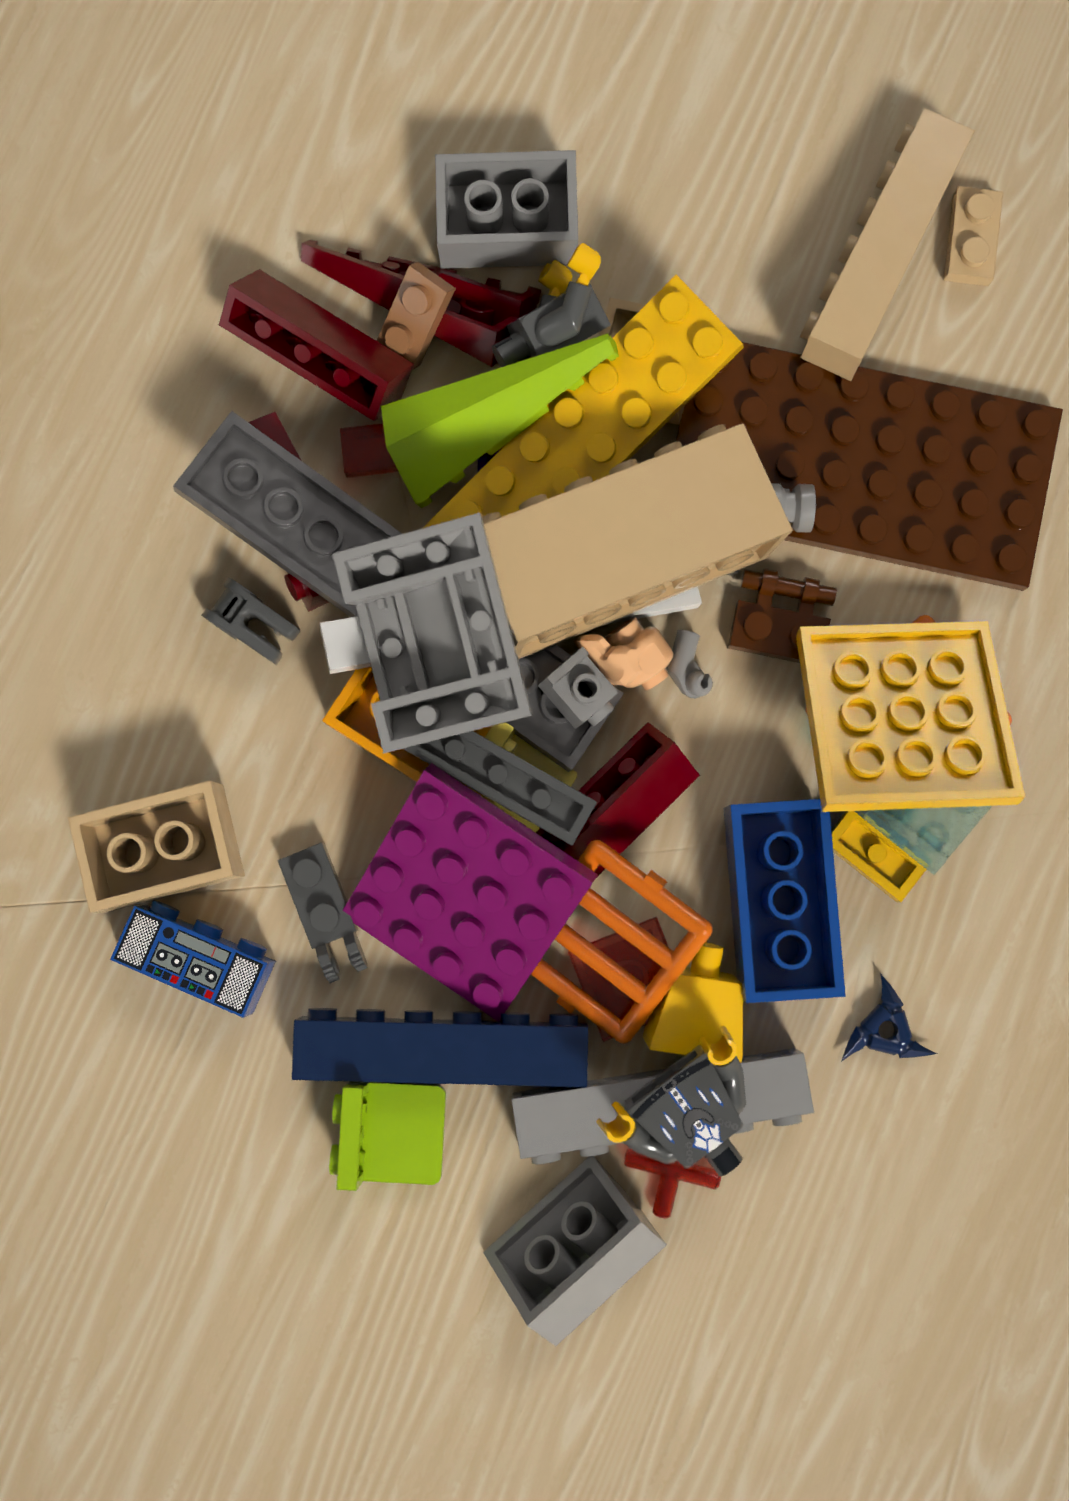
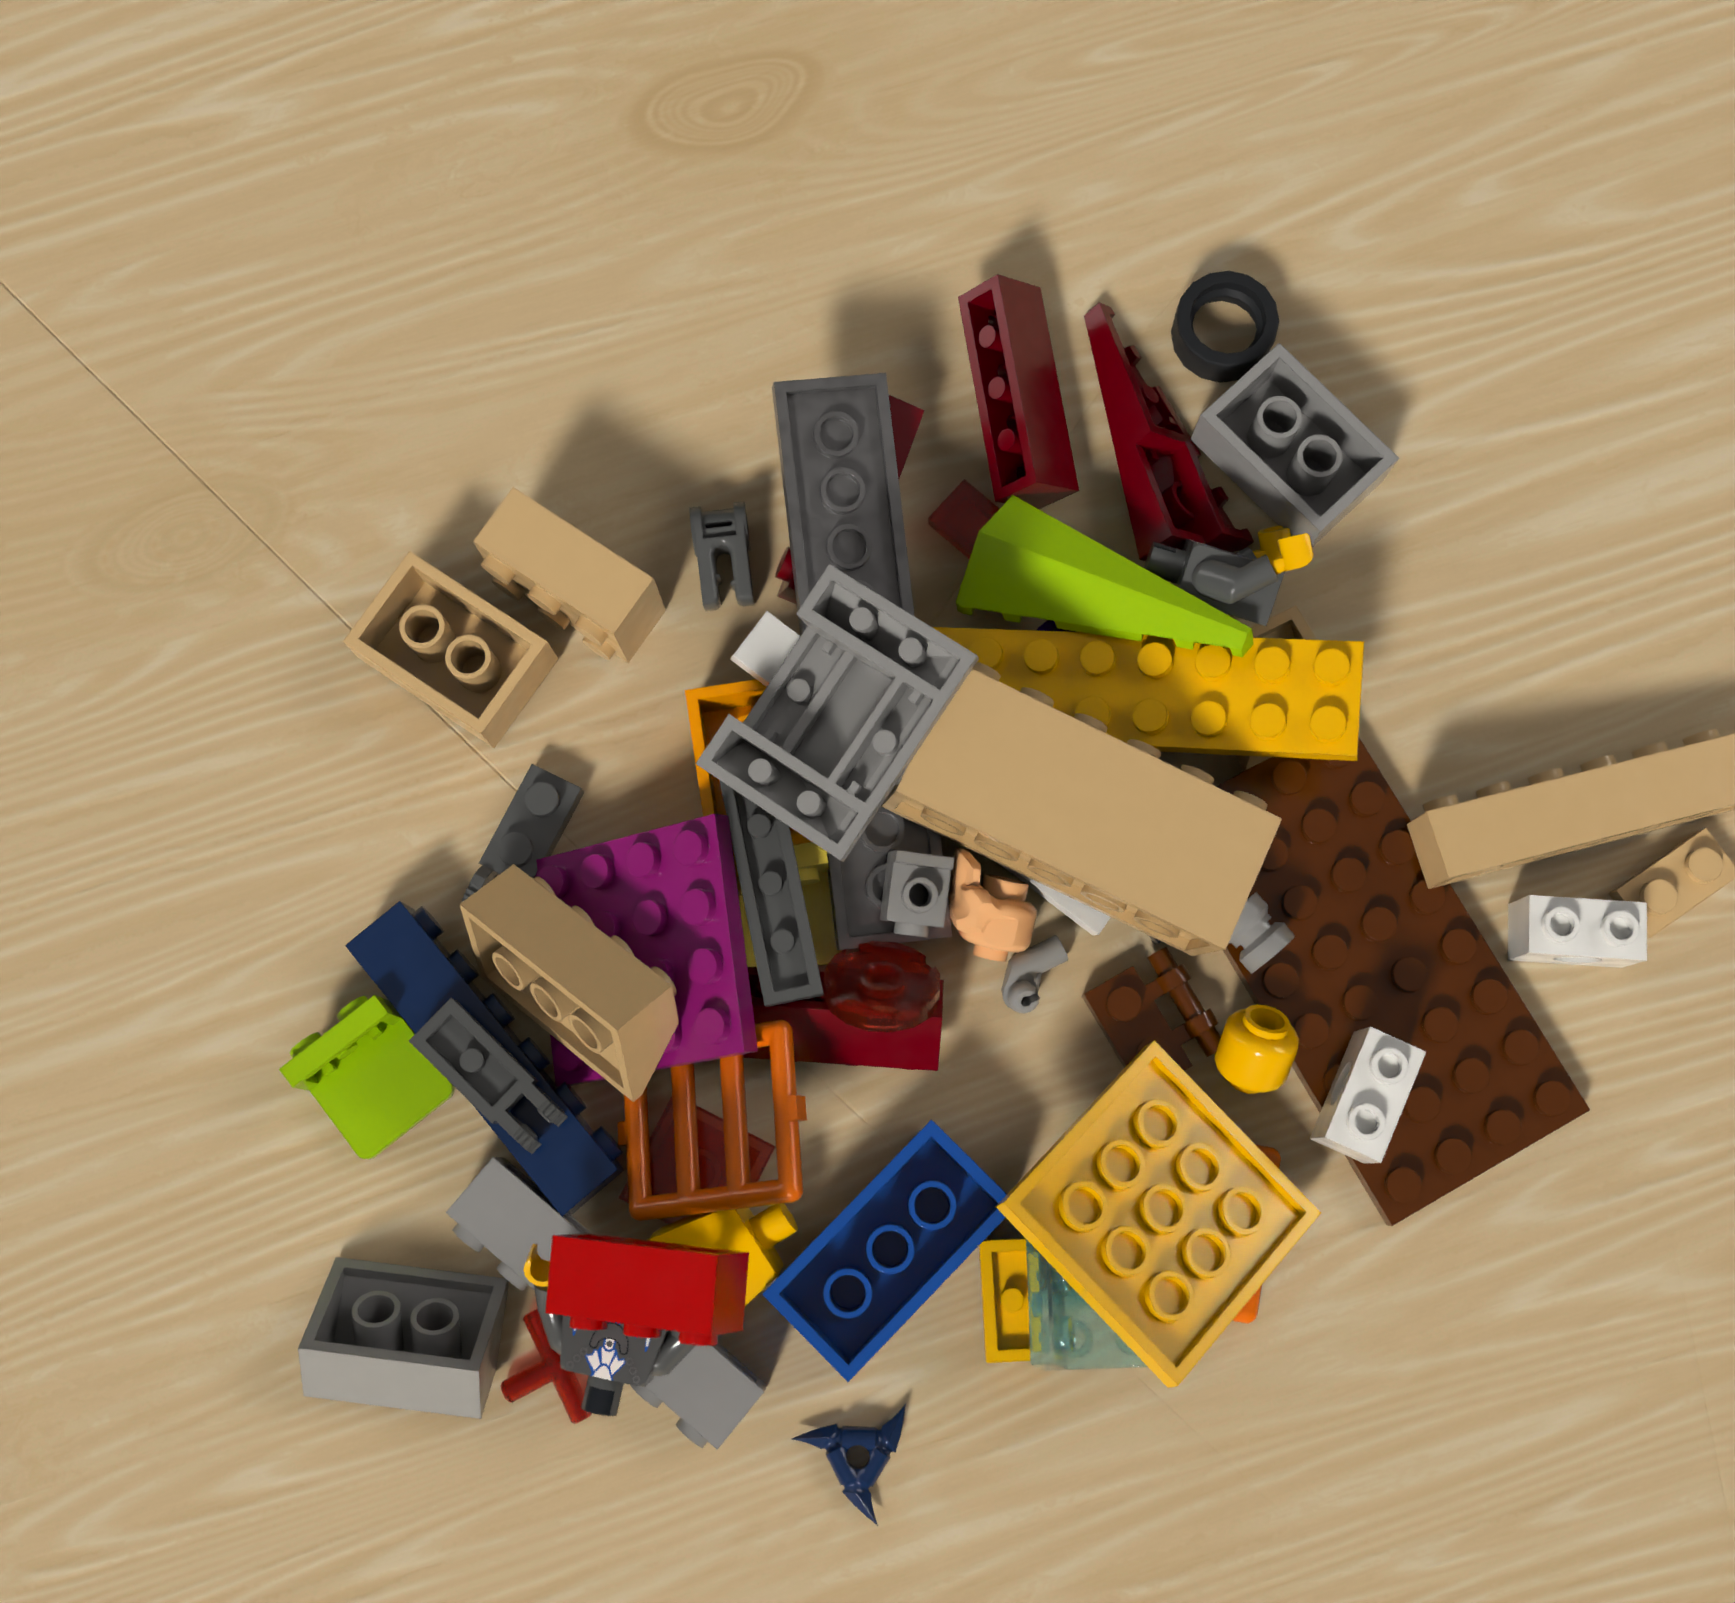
camera: 45 degrees right, 5 degrees down
(177, 730) = (569, 577): none -> tan brick
(194, 958) = (382, 768): brick -> none
(380, 149) = (1234, 289): none -> black tyre
(416, 313) = (1124, 452): medium nougat plate -> none
(444, 951) = (572, 978): none -> tan slope
(454, 1058) = (484, 1071): none -> dark grey hinge
(621, 763) = (881, 987): none -> clear red tile
(691, 1070) = (647, 1287): none -> red brick
(857, 571) = (1256, 1049): none -> yellow head
(946, 528) = (1368, 1095): none -> white brick
(953, 317) = (1577, 931): none -> white brick

